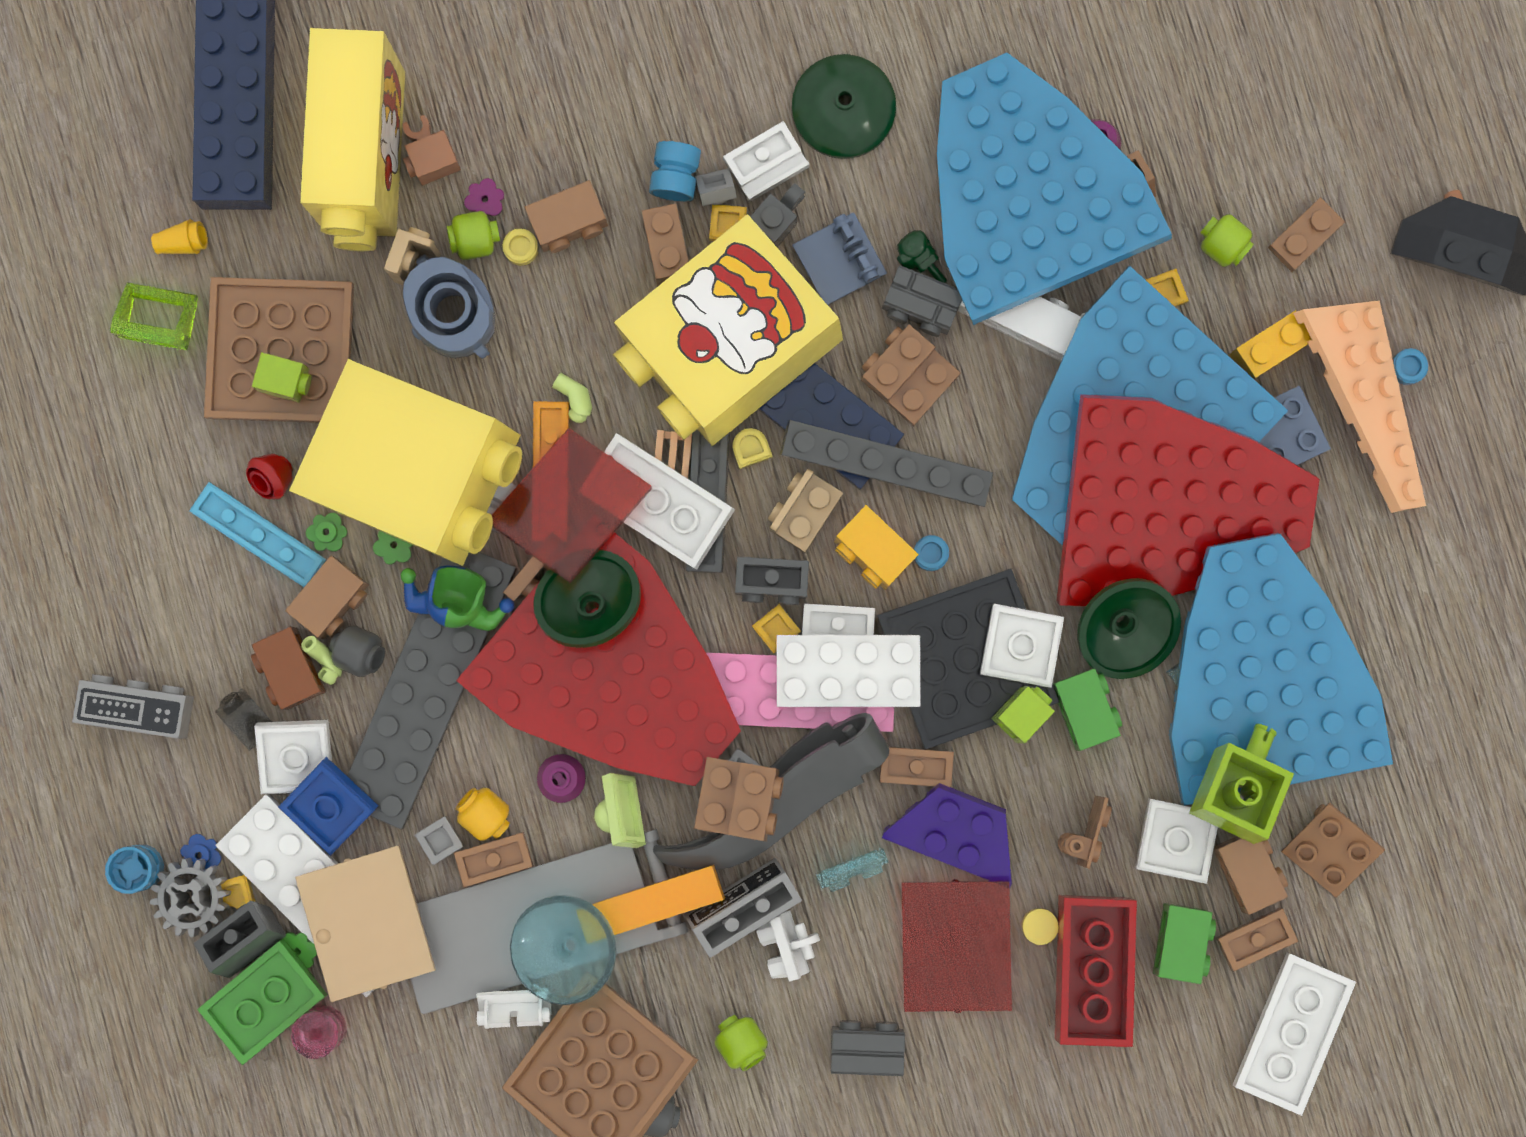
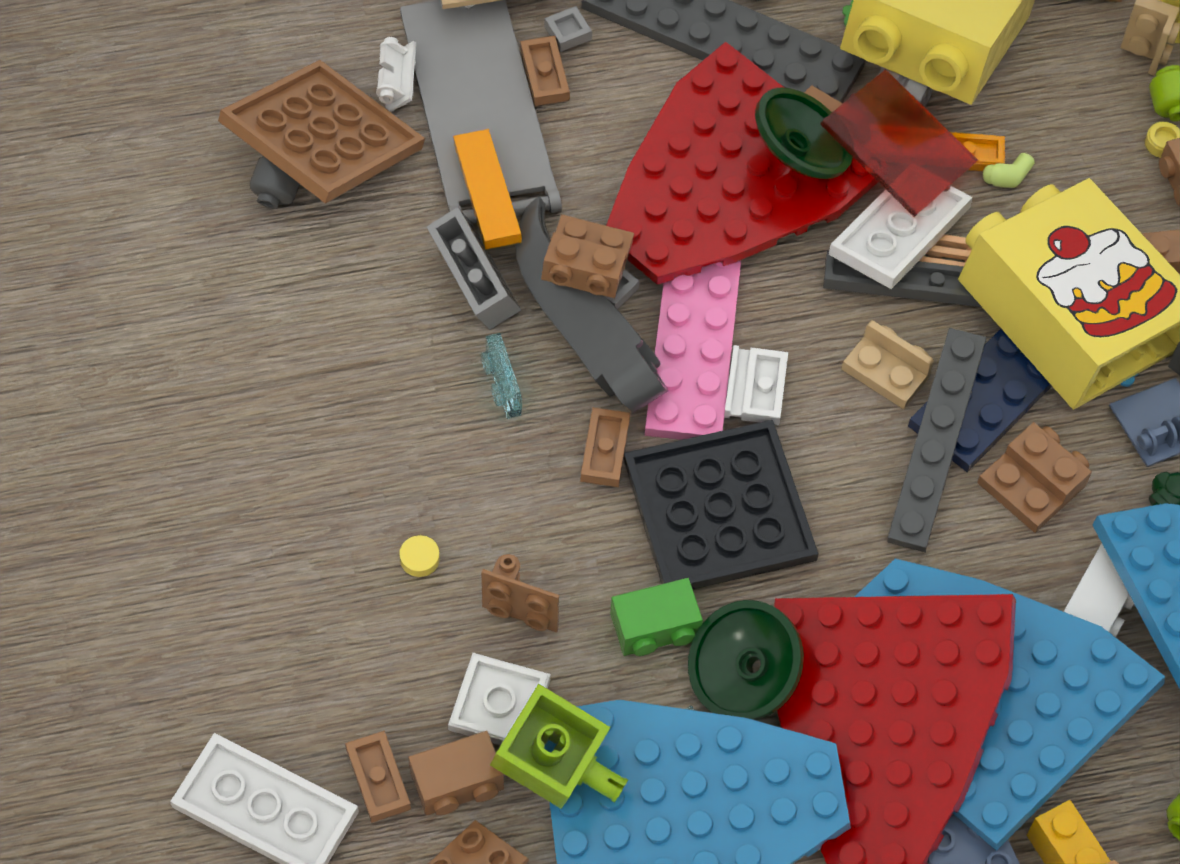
camera: 95 degrees right, 25 degrees down
(428, 286) = (1099, 59): sand blue piece -> none
(454, 598) = (809, 42): bright green piece -> none
(483, 813) = (591, 62): yellow head -> none
(548, 965) = (450, 104): clear light blue dish -> none
(567, 788) = (620, 132): magenta cone -> none
(621, 811) = (583, 173): yellowish green tile -> none
(741, 1042) = (334, 261): lime head -> none
(750, 447) = (954, 317): light yellow tile -> none
(771, 578) = (816, 321): dark grey brick -> none
(773, 624) = (762, 331): yellow tile -> none
(792, 943) = (429, 311): white hips -> none
(848, 670) = (714, 384): white plate -> none
(867, 1050) = (309, 374): dark grey brick -> none
(874, 548) = (845, 413): yellow brick -> none
(922, 301) = (1120, 485): dark grey brick -> none
(932, 553) = (837, 485): dark azure tile -> none
(956, 832) = (530, 480): dark purple wing -> none
(956, 946) = (408, 471): clear red piece -> none
(1022, 645) = (732, 548): white plate -> none
(1024, 713) = (657, 529): lime brick -> none
(1095, 971) = (365, 595): red brick -> none
(1170, 287) = (1134, 751): yellow tile -> none
(1184, 943) = (383, 694): bright green brick -> none

